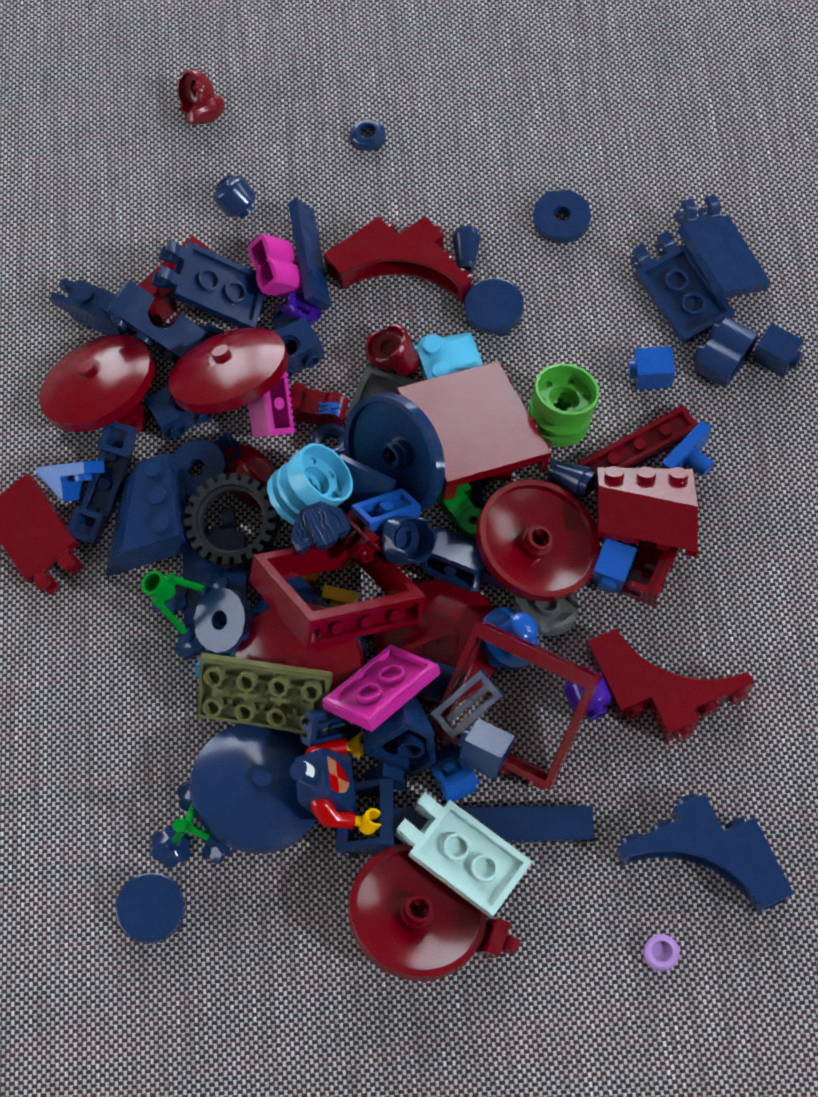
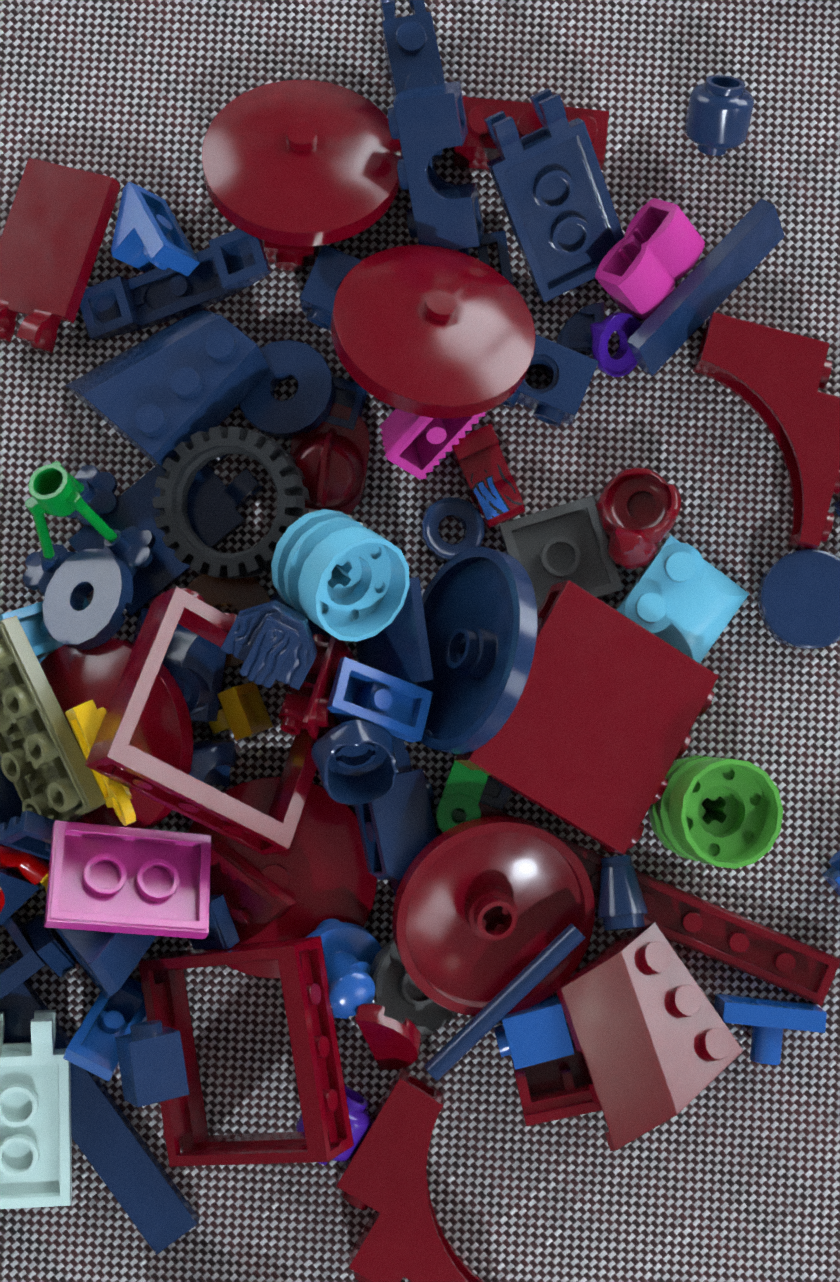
camera: 50 degrees right, 20 degrees up
(289, 650) = (85, 723): none -> yellow hinge
(488, 685) = (194, 989): dark blue tile -> none
(564, 630) = (391, 1042): none -> dark red tile
(585, 565) = (504, 1001): none -> dark blue bar

